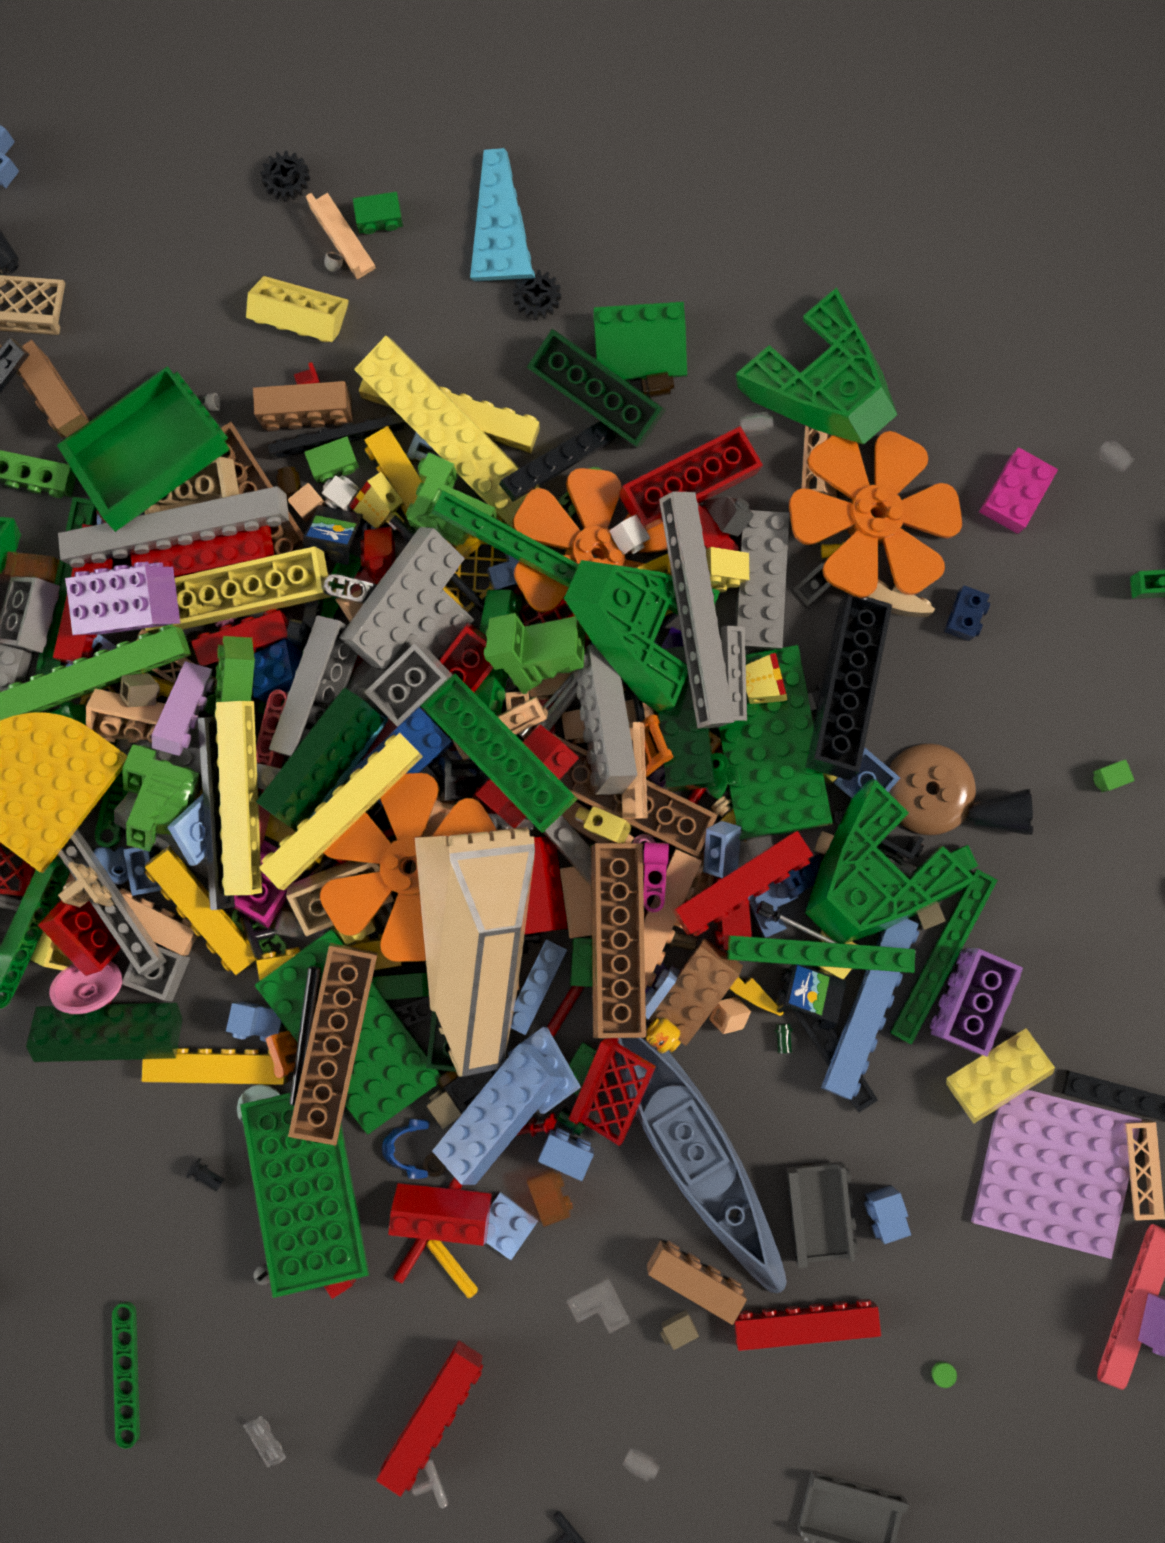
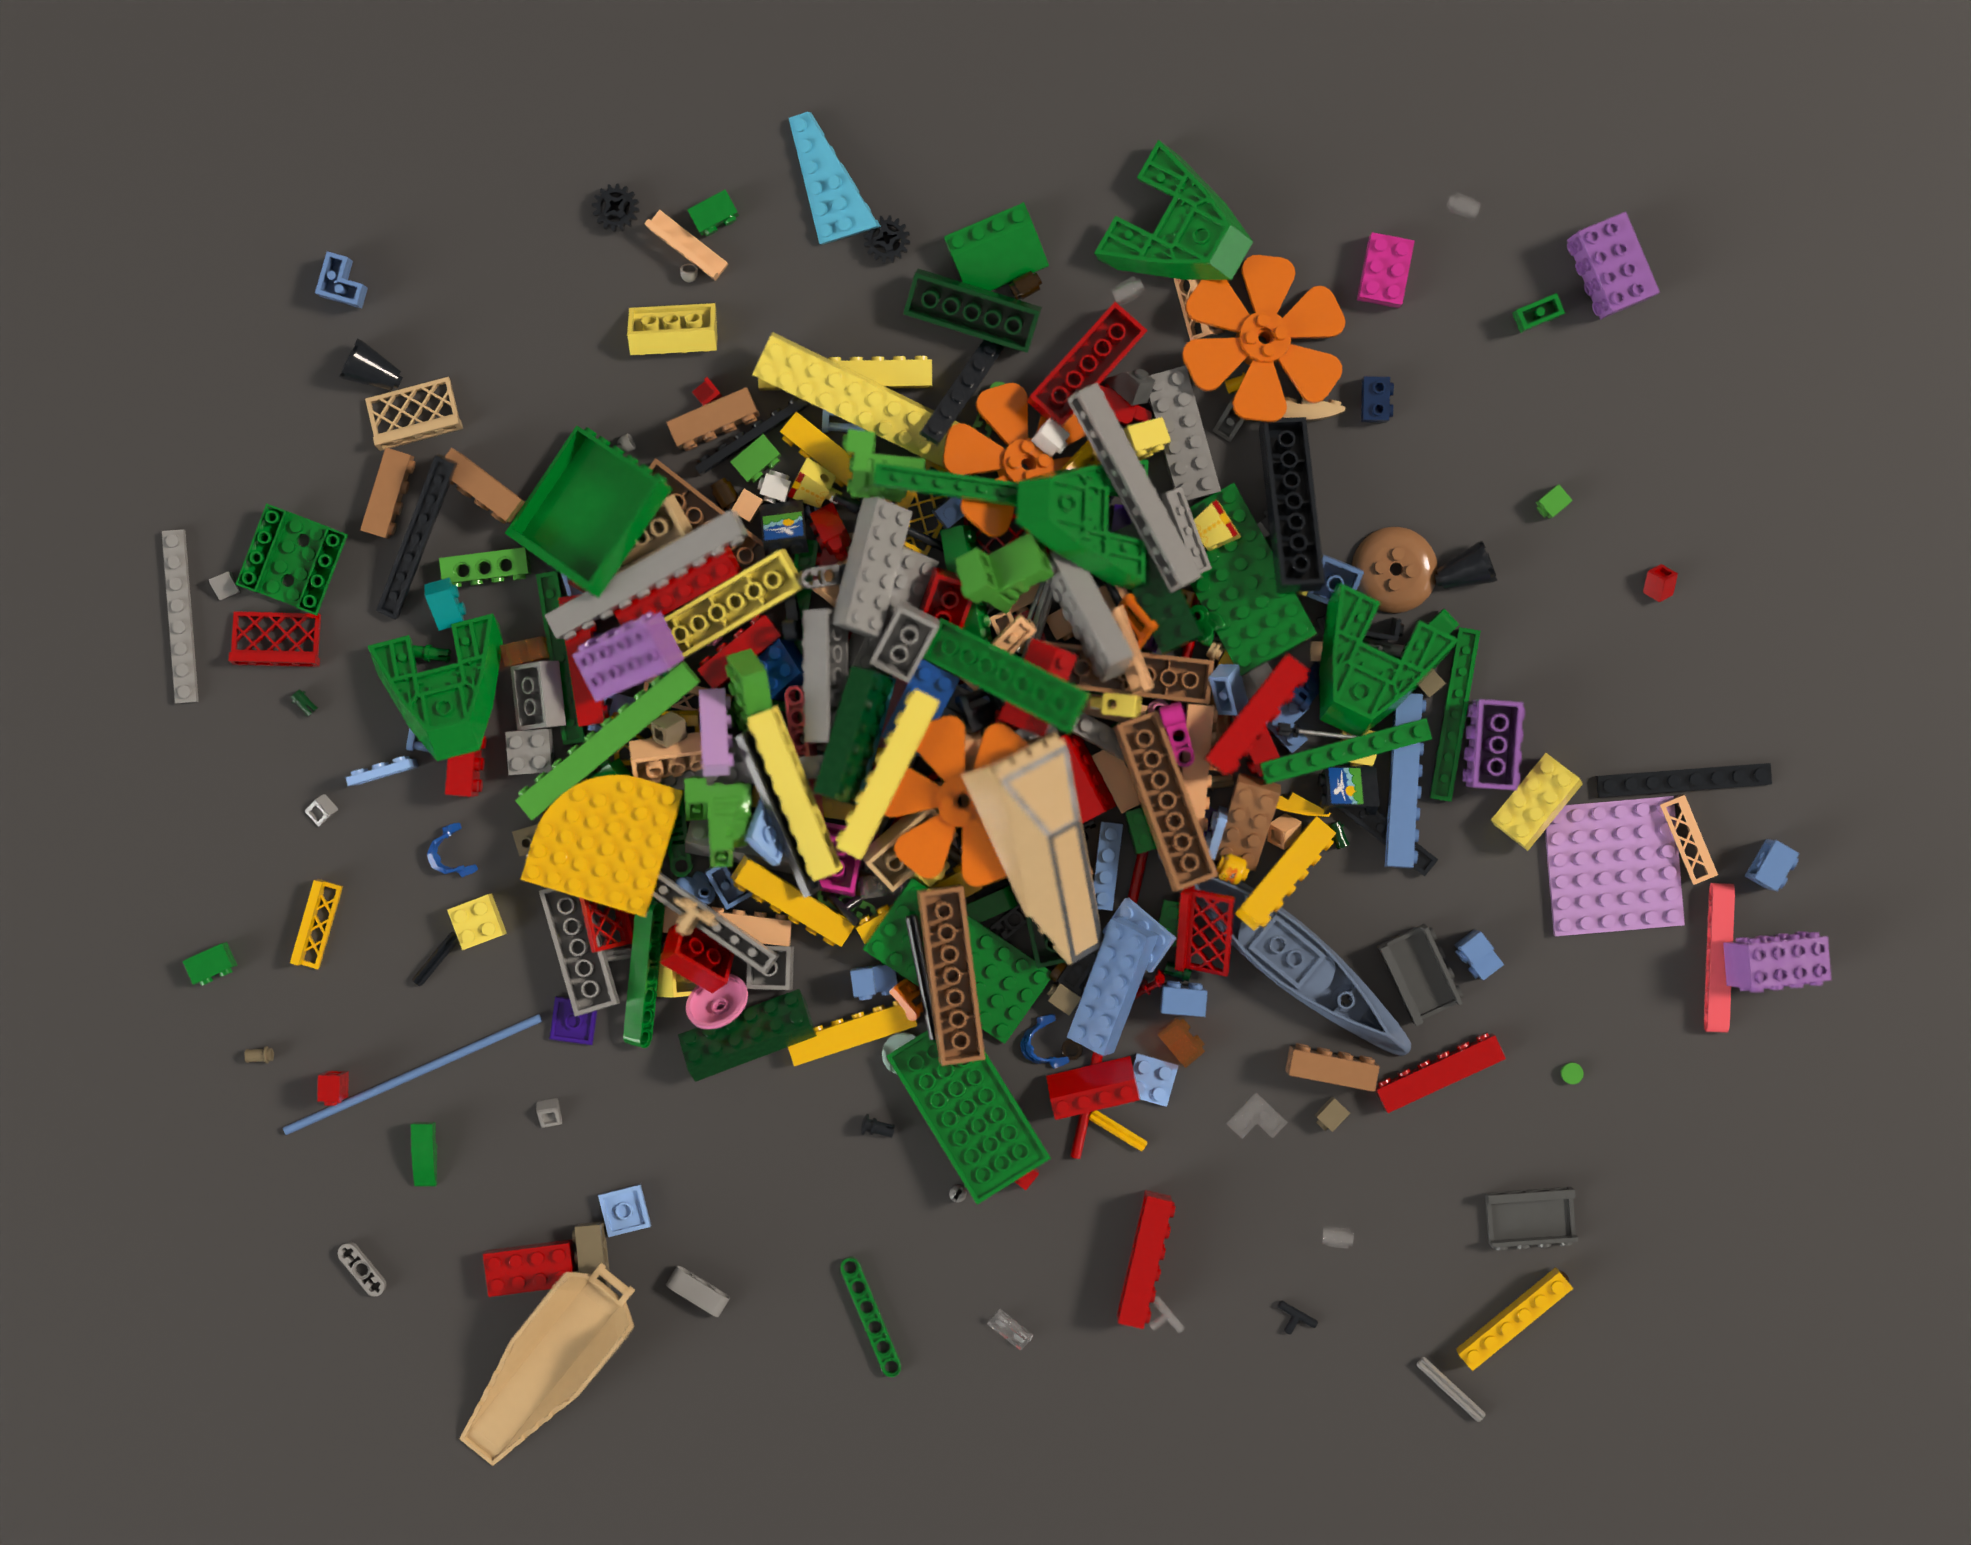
camera: 20 degrees left, 5 degrees up
(715, 1060) = (1285, 873): none -> yellow brick

